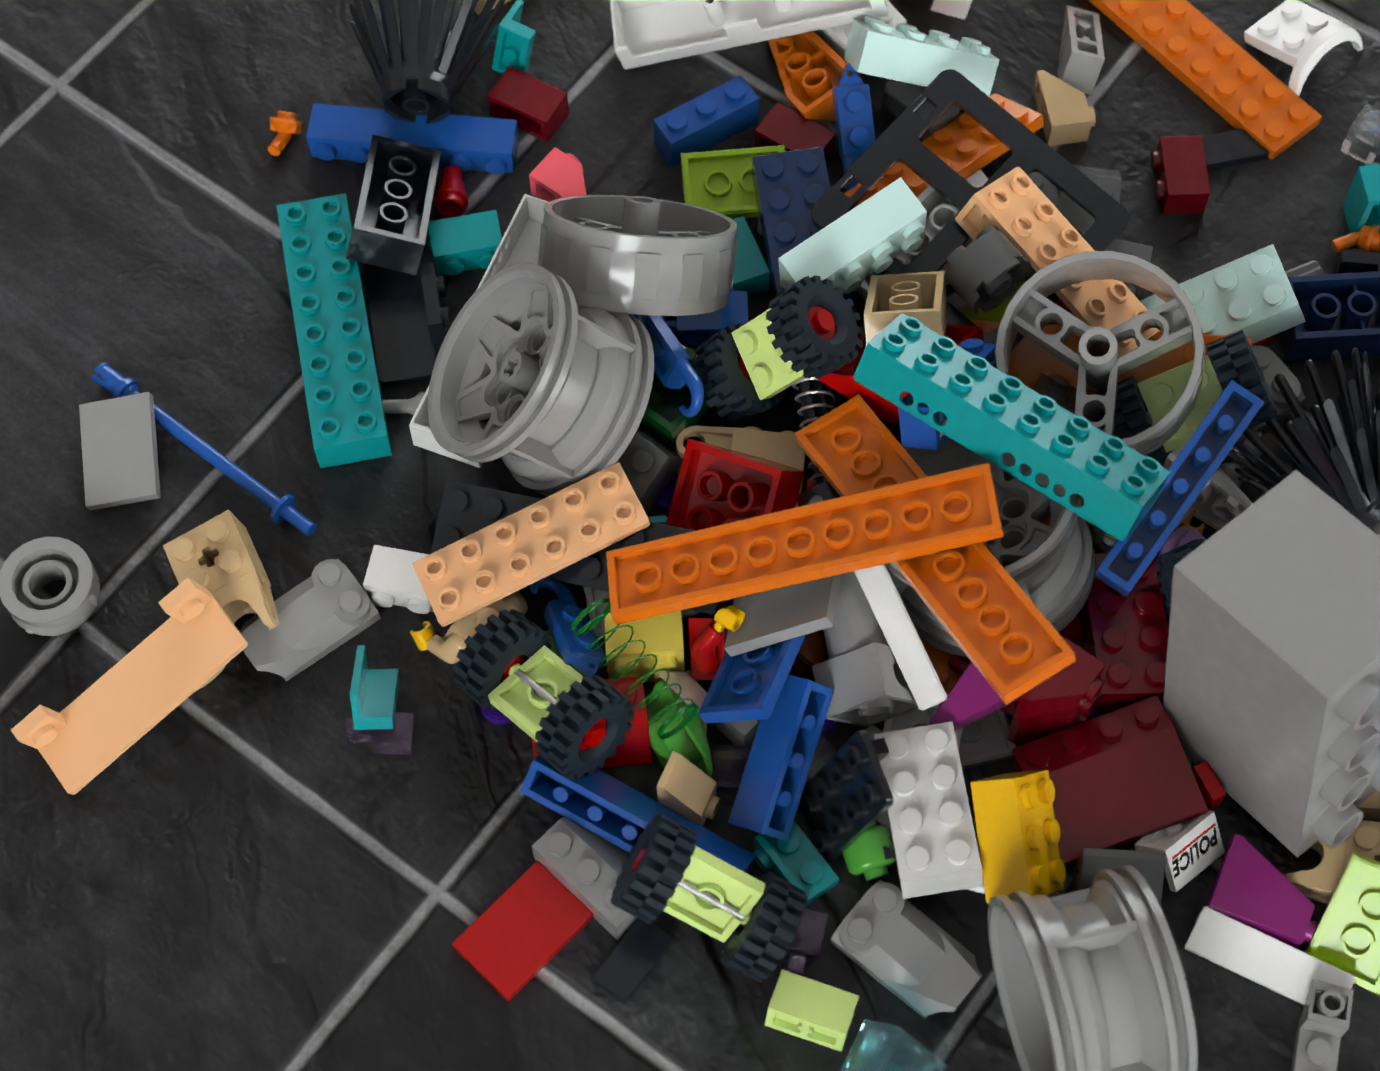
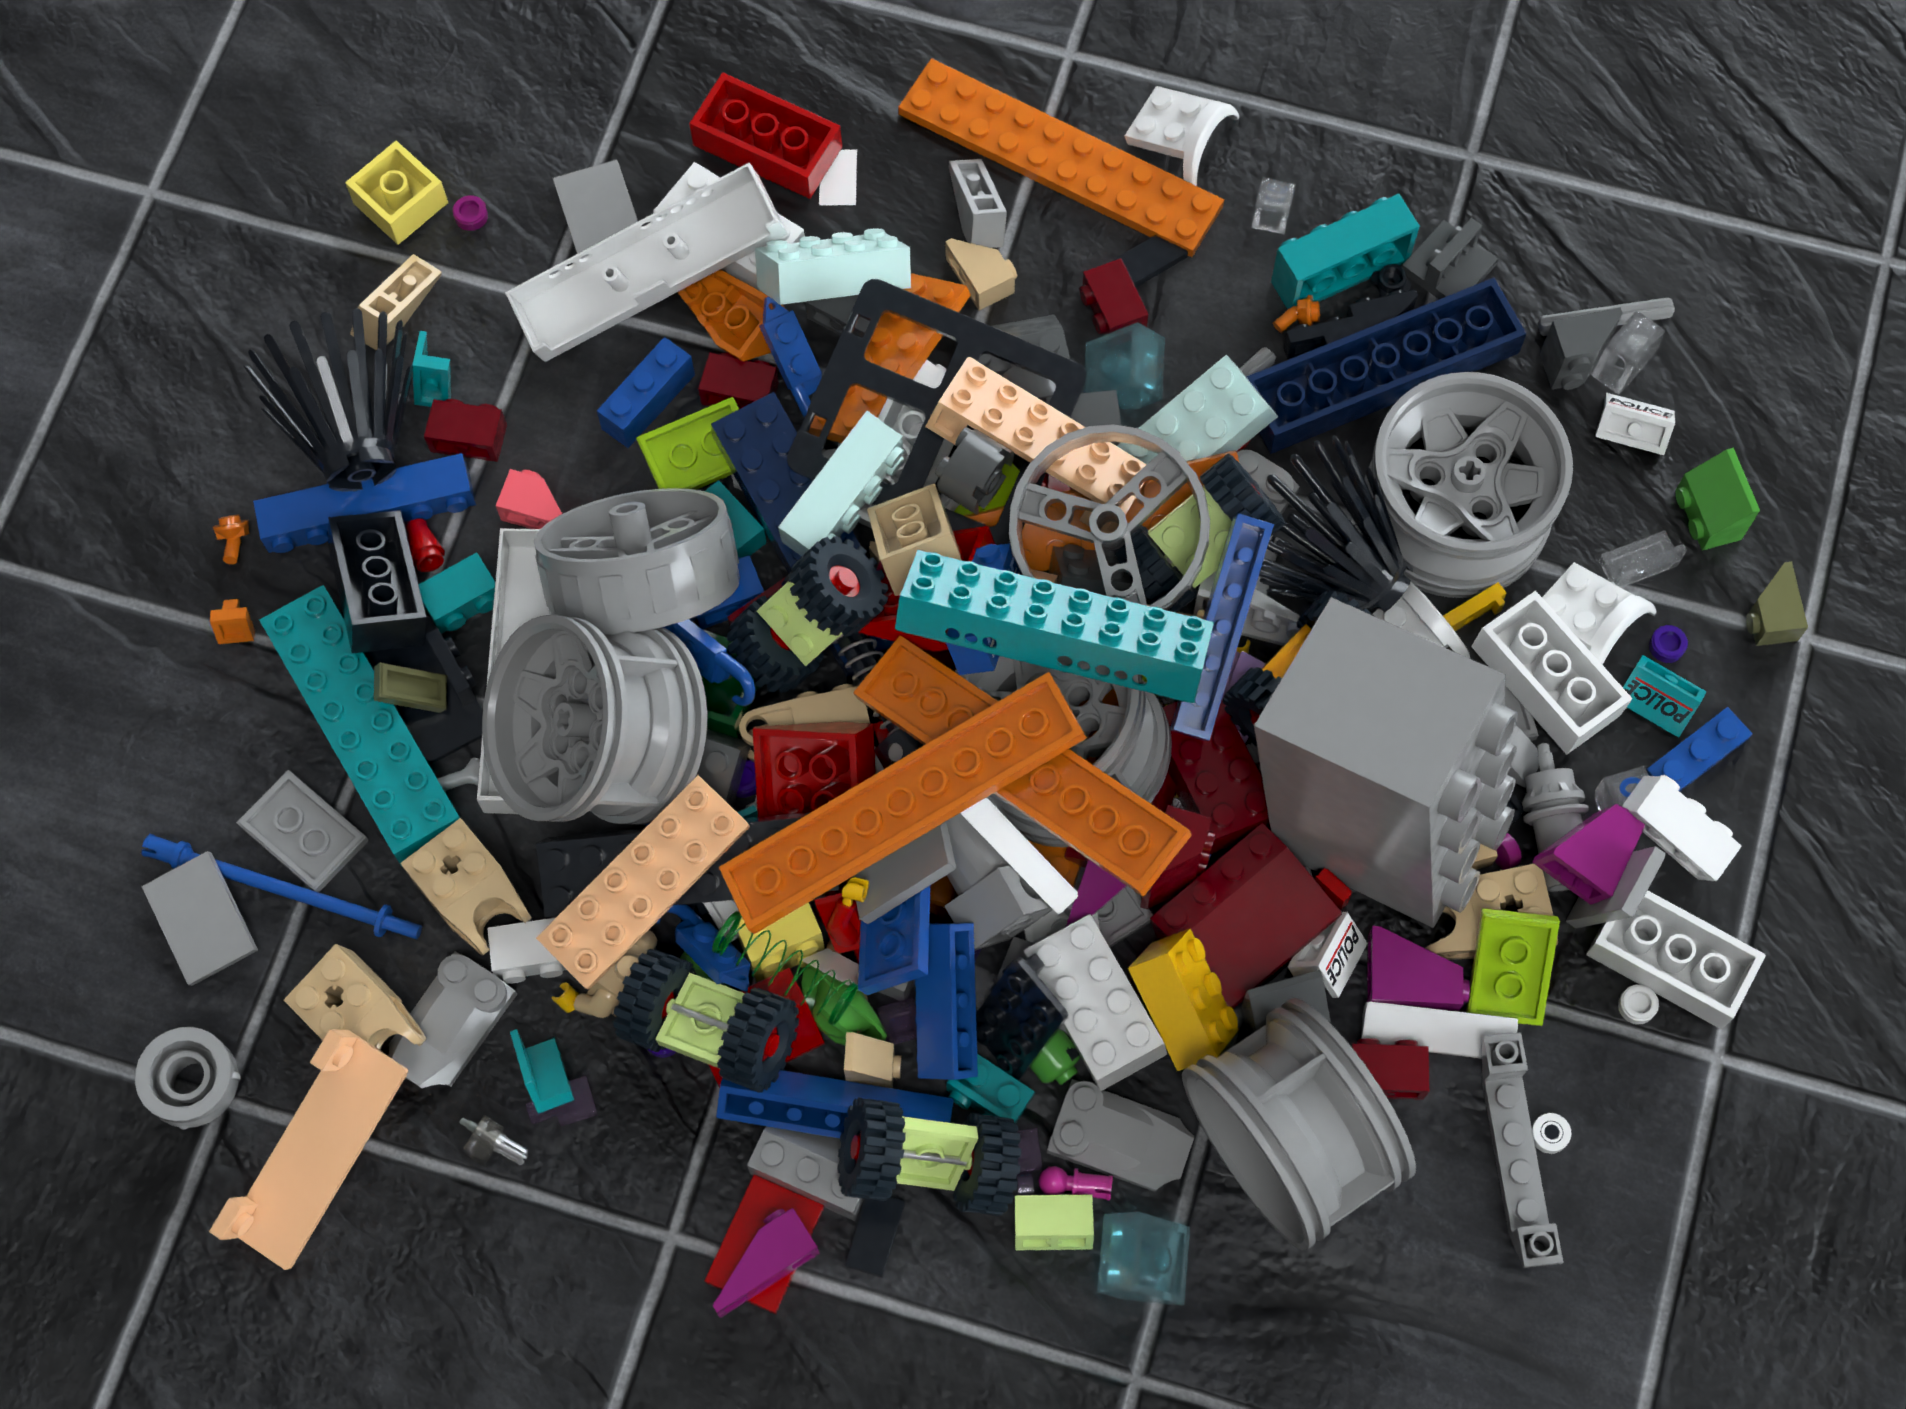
camera: 20 degrees left, 5 degrees up
(243, 407) = (302, 831): none -> light grey tile
(253, 204) = (232, 623): none -> orange tile
(299, 737) = (490, 1137): none -> clear smoke piece
(368, 497) = (464, 883): none -> tan brick
(388, 307) = (410, 687): none -> olive tile
(523, 941) = (772, 1255): none -> magenta slope
(829, 971) = (1056, 1181): none -> dark pink pin
(1177, 231) = (1129, 363): none -> clear light blue slope
(1213, 982) = (1397, 1068): none -> dark red brick

